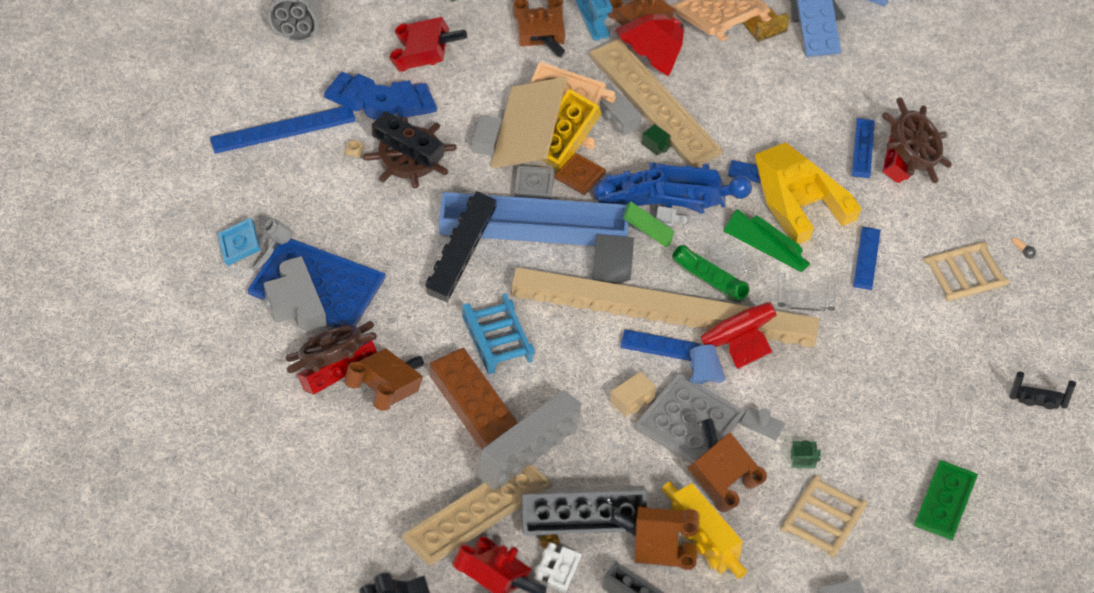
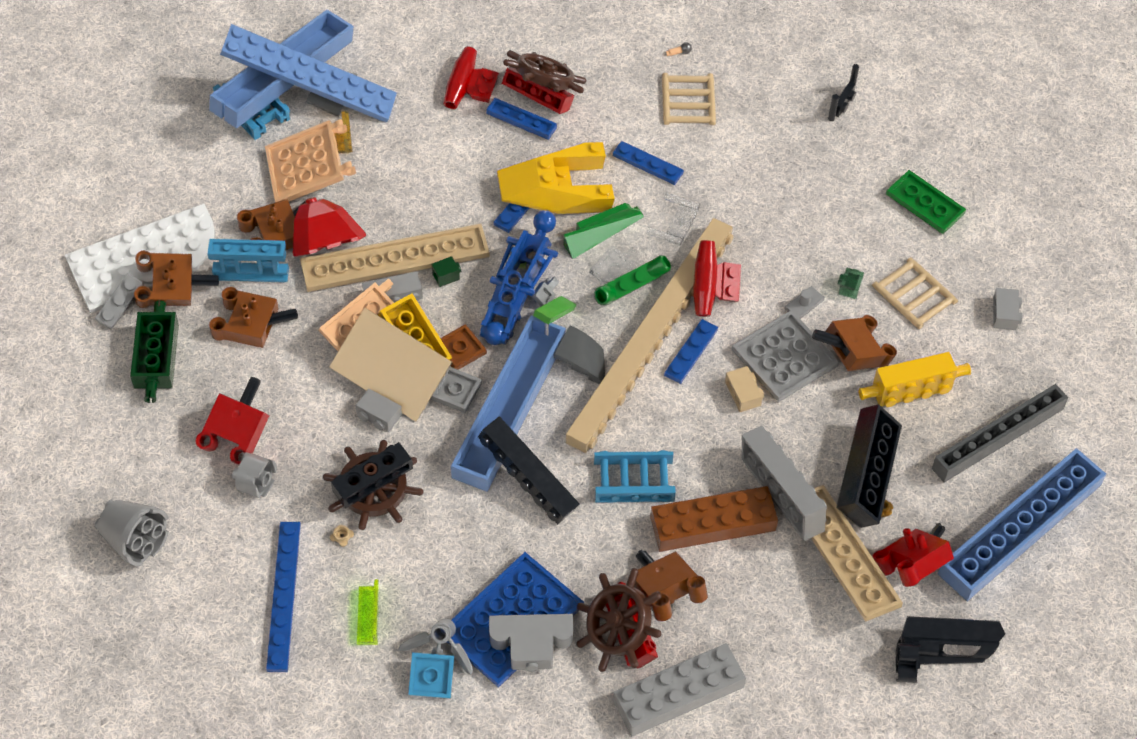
camera: 70 degrees left, 5 degrees up
(285, 188) = (368, 614): none -> clear neon green panel
(288, 419) = (679, 689): none -> light grey brick
(383, 68) = (254, 475): none -> light grey brick
(399, 98) = (293, 490): blue plate -> none
(563, 570) = (919, 504): white plate -> none
(659, 536) = (919, 411): dark orange piece -> none
(705, 365) = (732, 321): medium blue slope -> none
(883, 95) = (466, 79): none -> red plate

